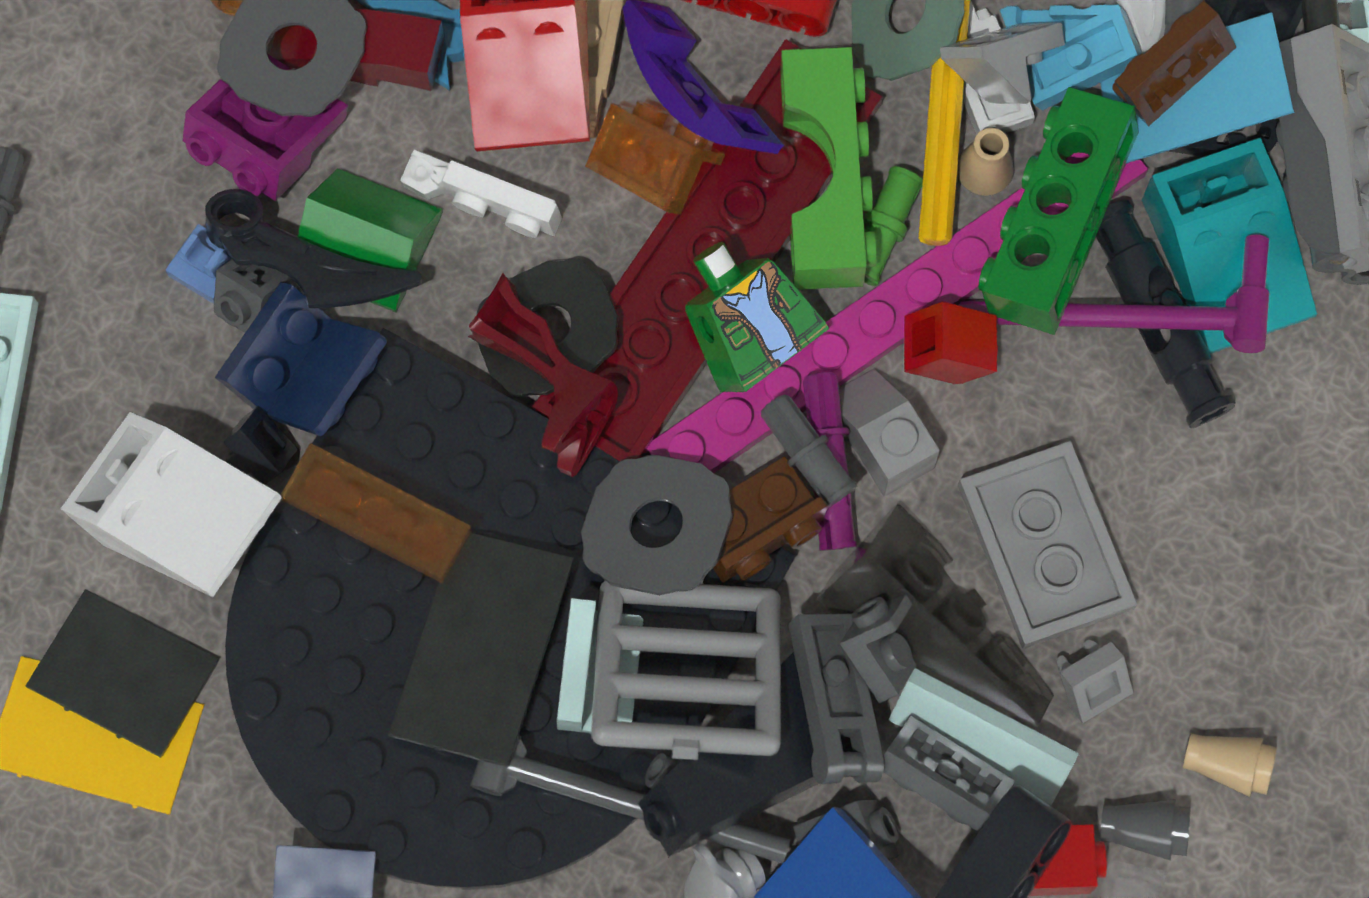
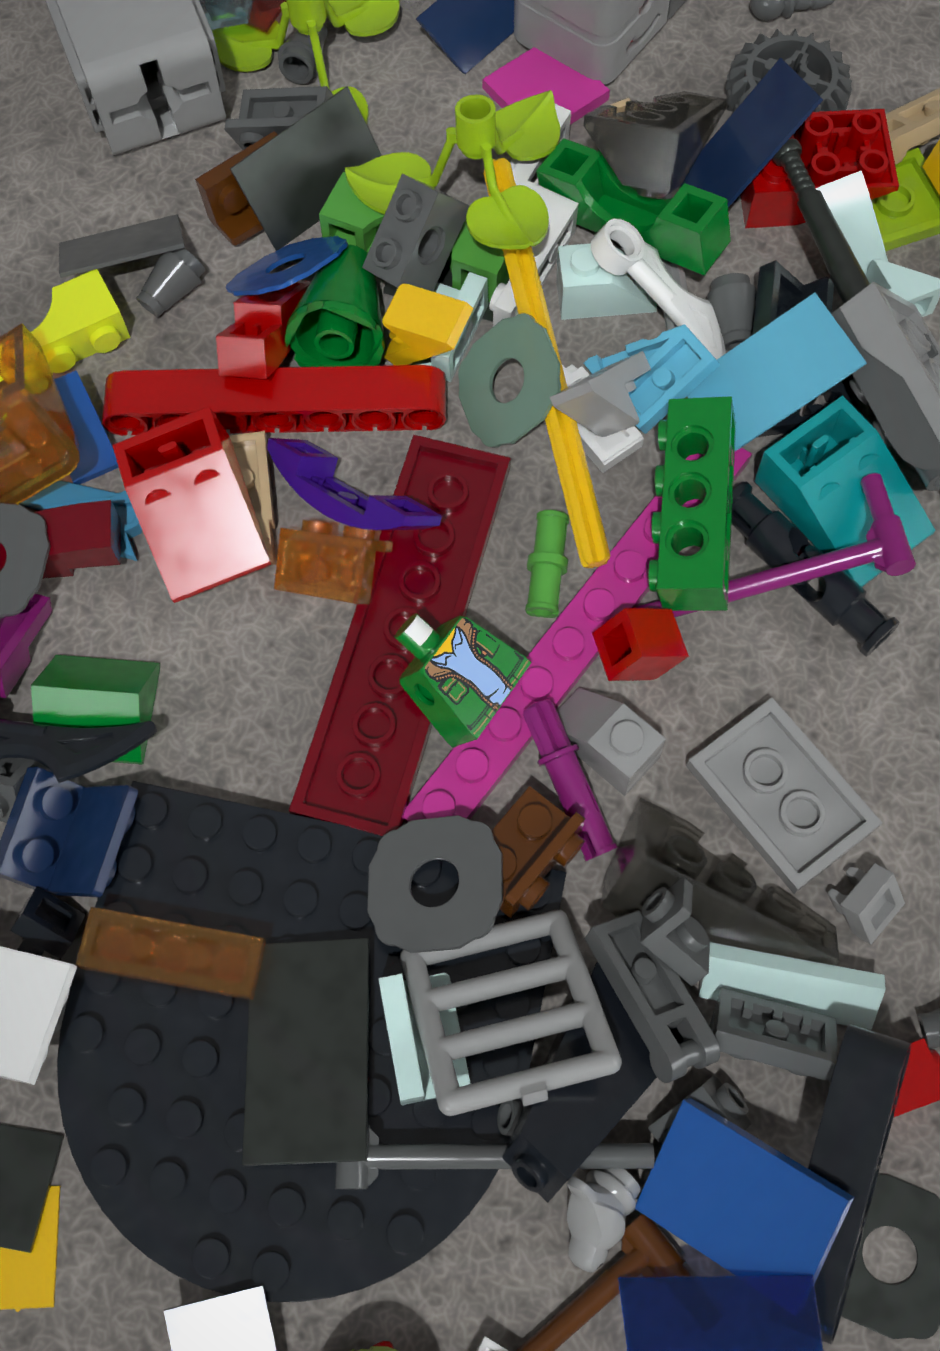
camera: 15 degrees left, 5 degrees down
(478, 192) = (186, 637): white hinge -> none
(581, 397) = (331, 788): dark red animal -> none
(592, 328) = (284, 778): pearl dark grey piece -> none
(807, 450) = (549, 774): dark grey axle -> none
(820, 103) = (462, 475): bright green arch -> none
(986, 163) = (617, 485): tan cone -> none
(1174, 63) = (752, 352): reddish brown bracket -> none

